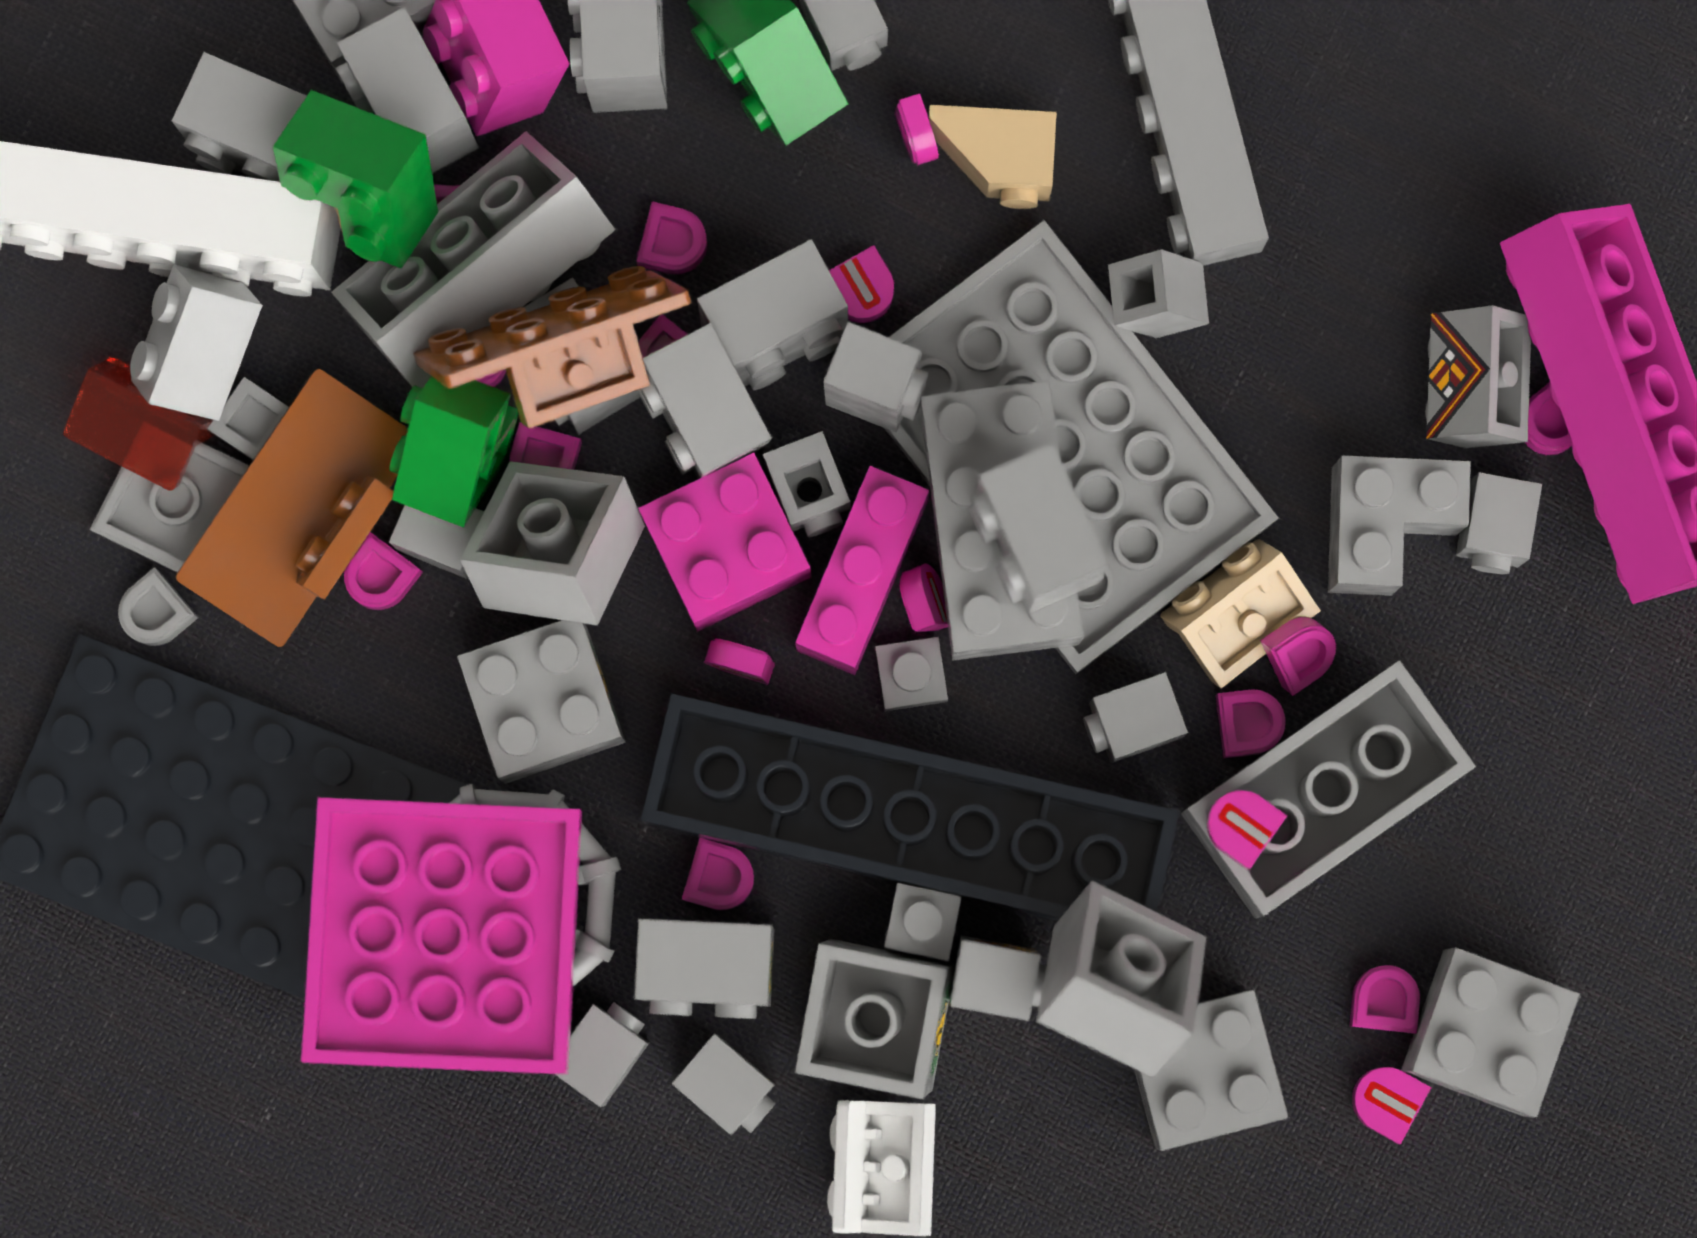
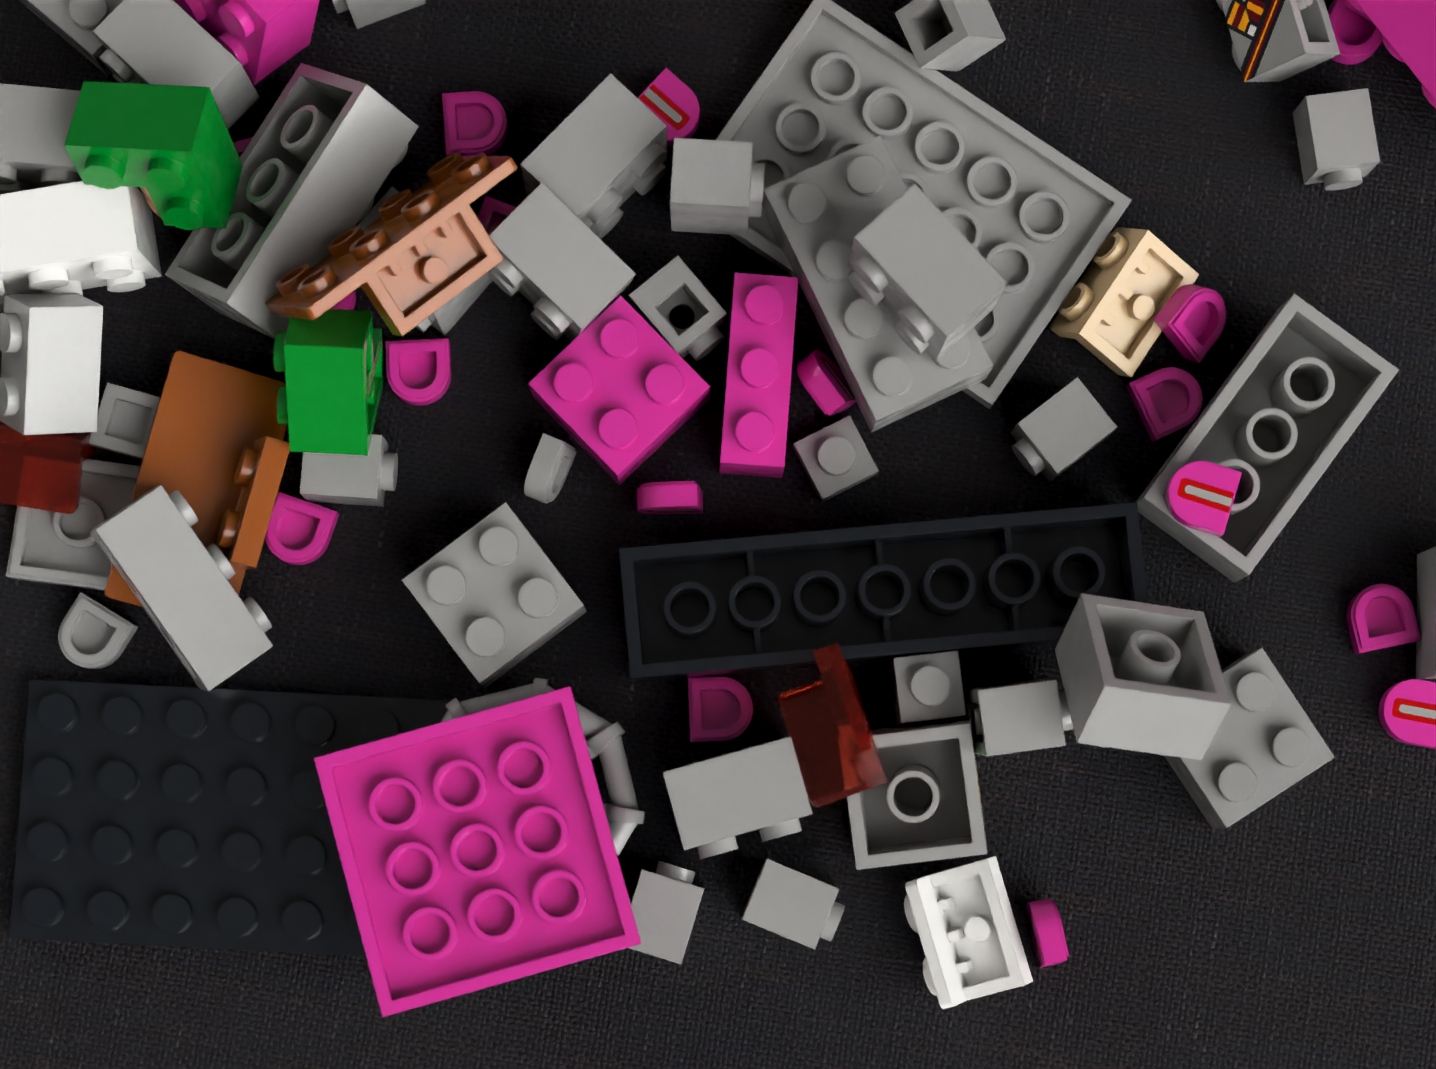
camera: 25 degrees left, 0 degrees up
(252, 595) = (184, 586): none -> light grey brick
(553, 542) = (458, 442): light grey brick -> none
(634, 594) = (548, 469): none -> light grey tile
(813, 934) = (832, 732): none -> clear red panel
(960, 1193) = (1047, 932): none -> dark pink tile
(1379, 502) = (1219, 164): light grey brick -> none

